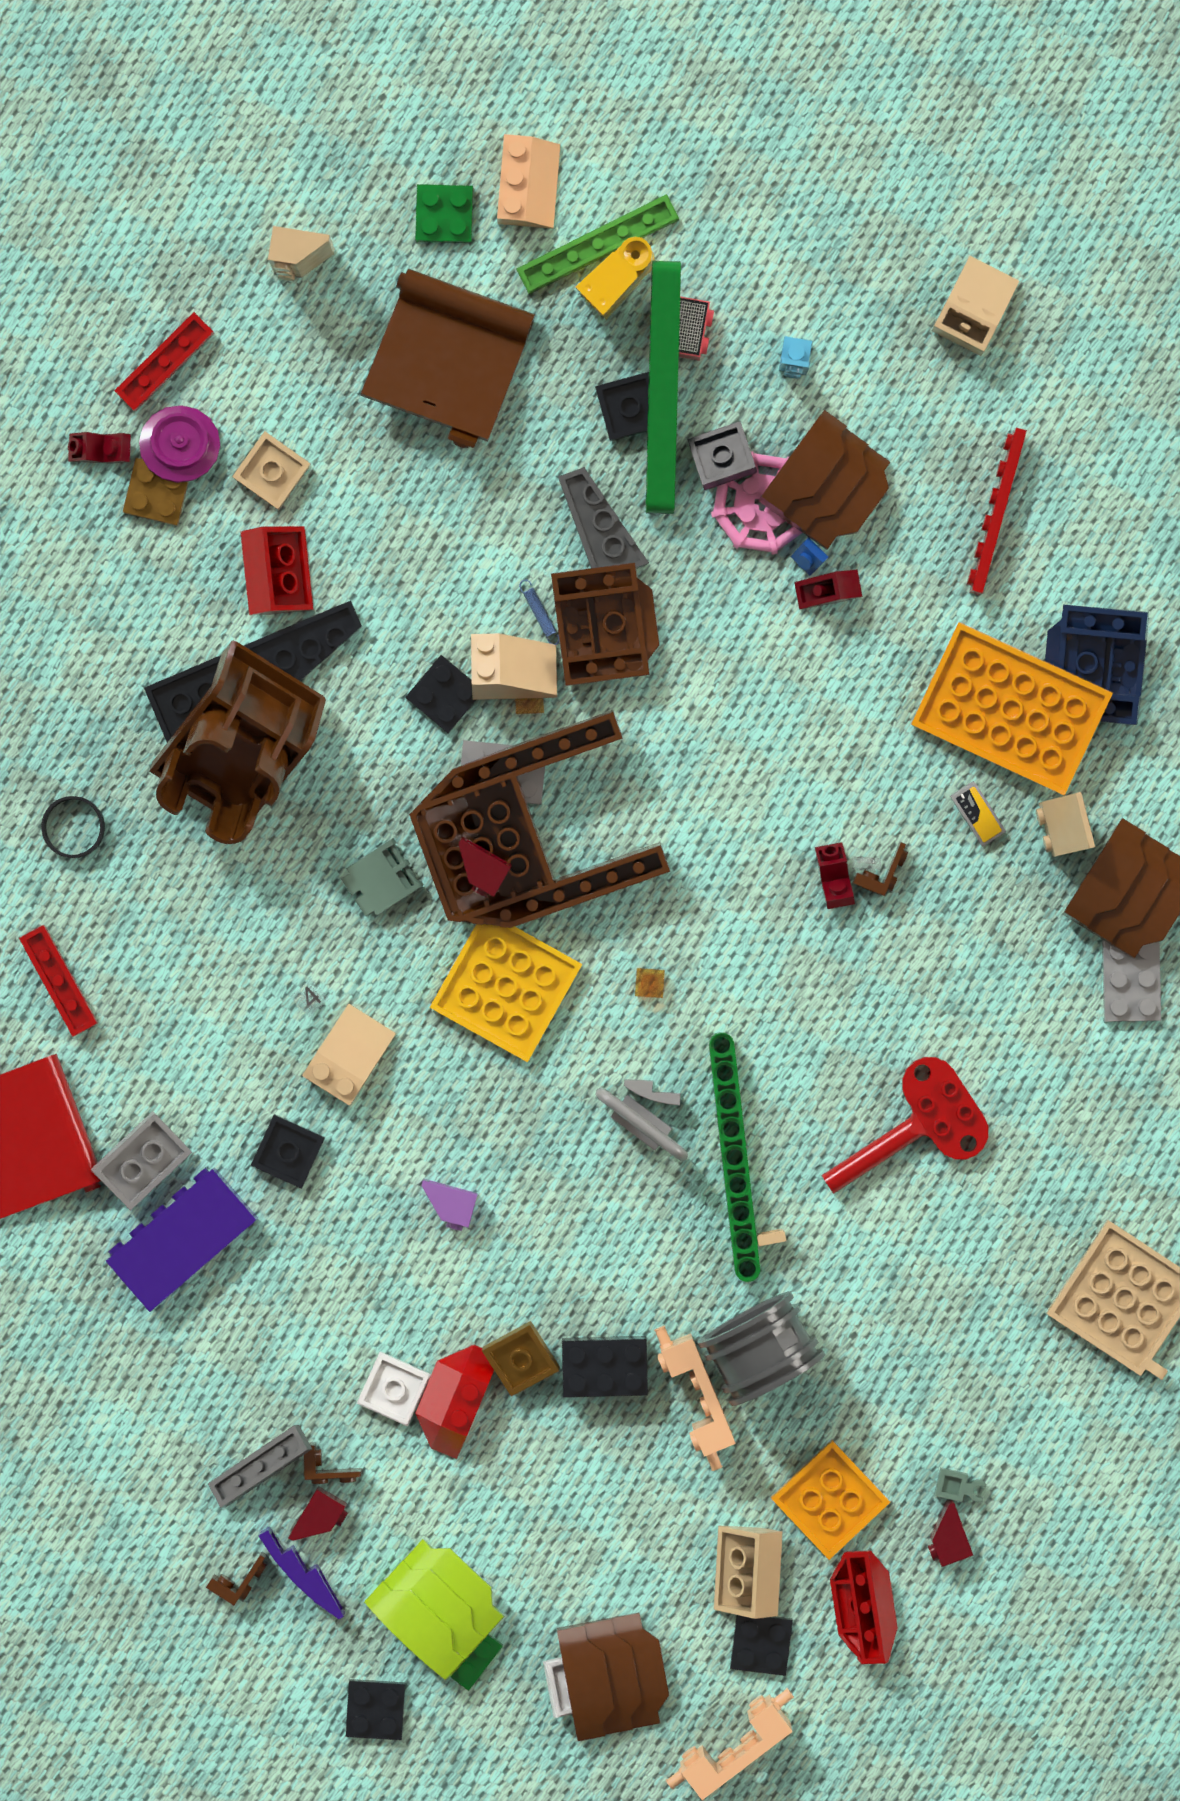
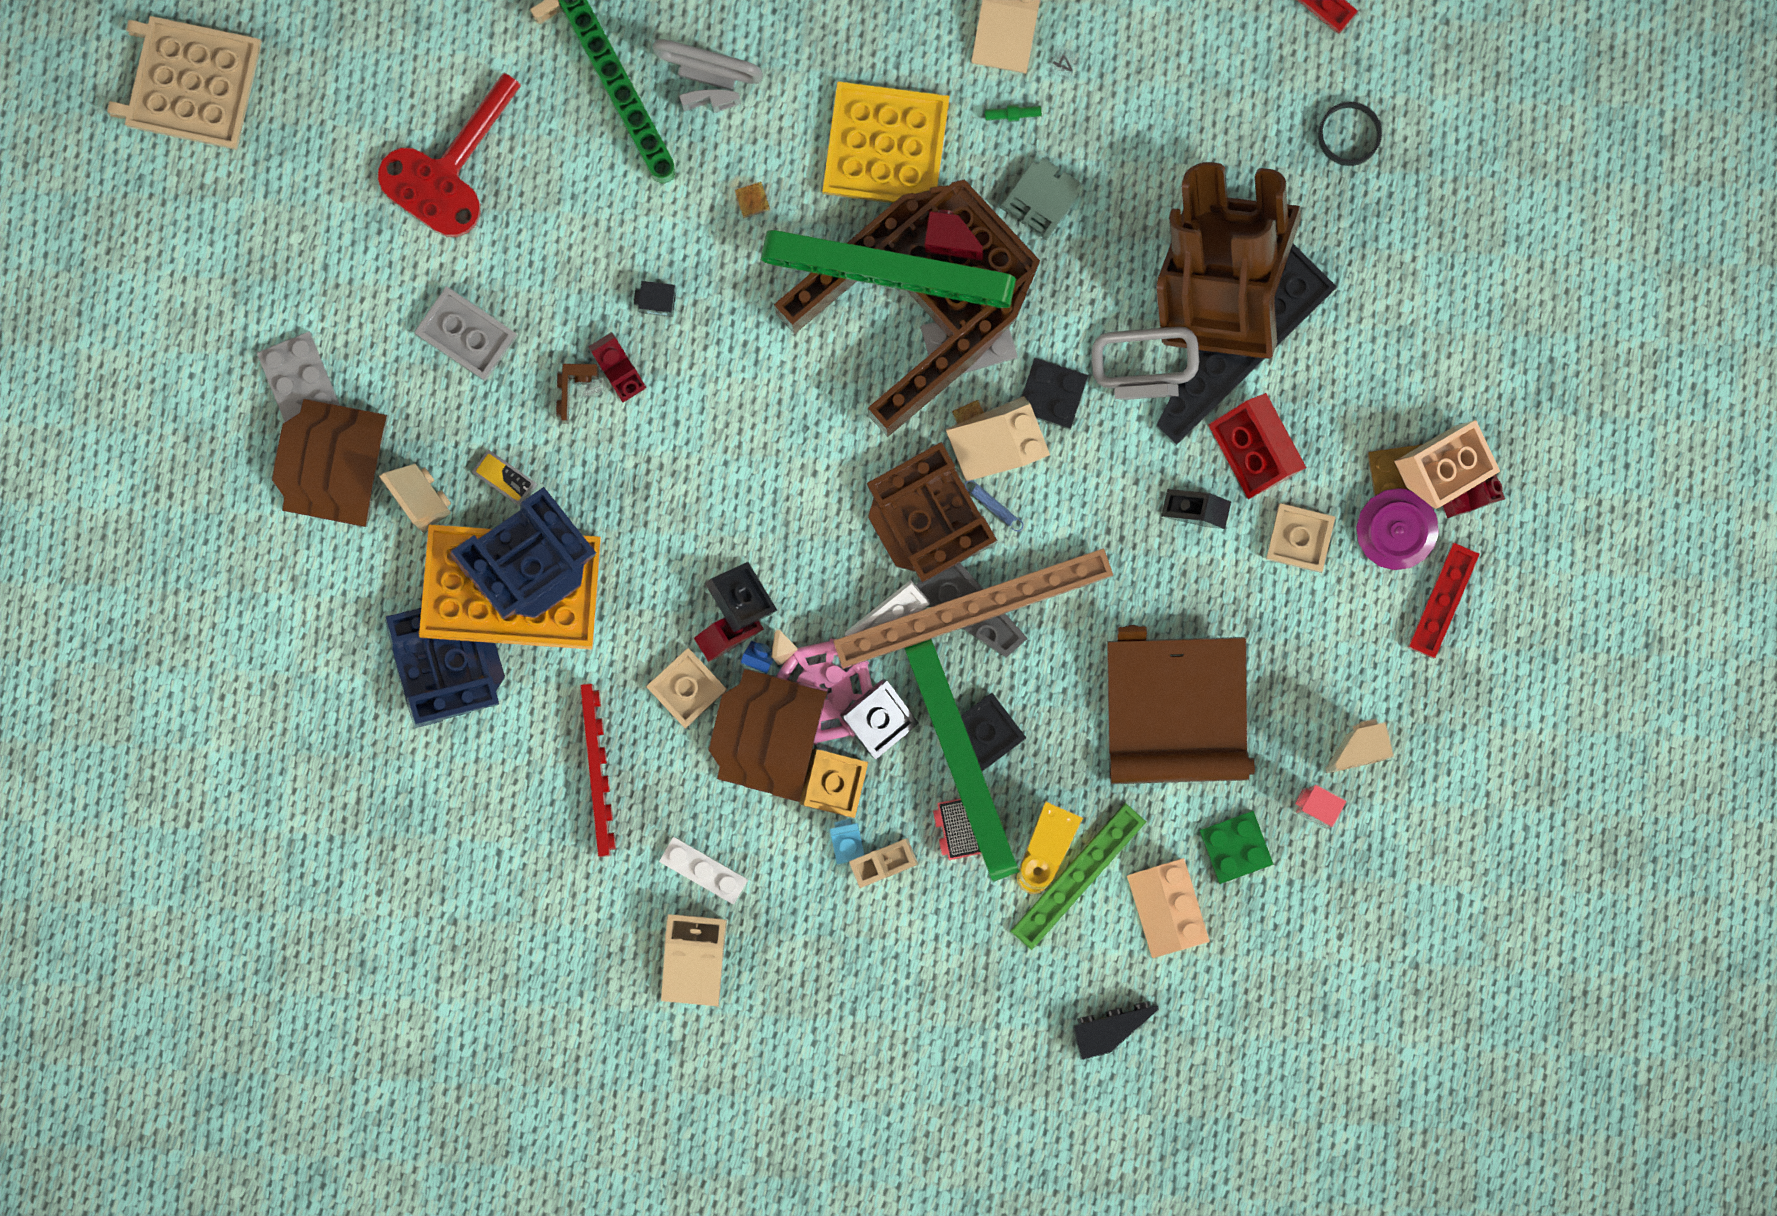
camera: 160 degrees right, 5 degrees down
(110, 480) = (1448, 464): none -> light nougat slope
(354, 217) = (1319, 806): none -> coral brick
(356, 534) = (1196, 508): none -> black slope
(359, 664) = (1145, 385): none -> light grey bar
(376, 969) = (1013, 113): none -> green bar
(552, 860) = (888, 269): none -> green beam
(597, 521) = (973, 608): none -> medium nougat plate
(630, 91) = (1105, 1034): none -> black slope
(679, 545) = (900, 604): none -> white plate
(769, 325) = (883, 863): none -> tan slope
(775, 925) = (655, 298): none -> black brick
(784, 556) = (782, 648): none -> tan slope
(786, 413) = (833, 783): none -> plate
(804, 616) = (741, 596): none -> black plate
(886, 554) = (686, 688): none -> tan plate
(935, 383) = (703, 870): none -> white plate
(962, 962) = (465, 333): none -> light grey plate
(988, 724) = (527, 559): none -> dark blue slope

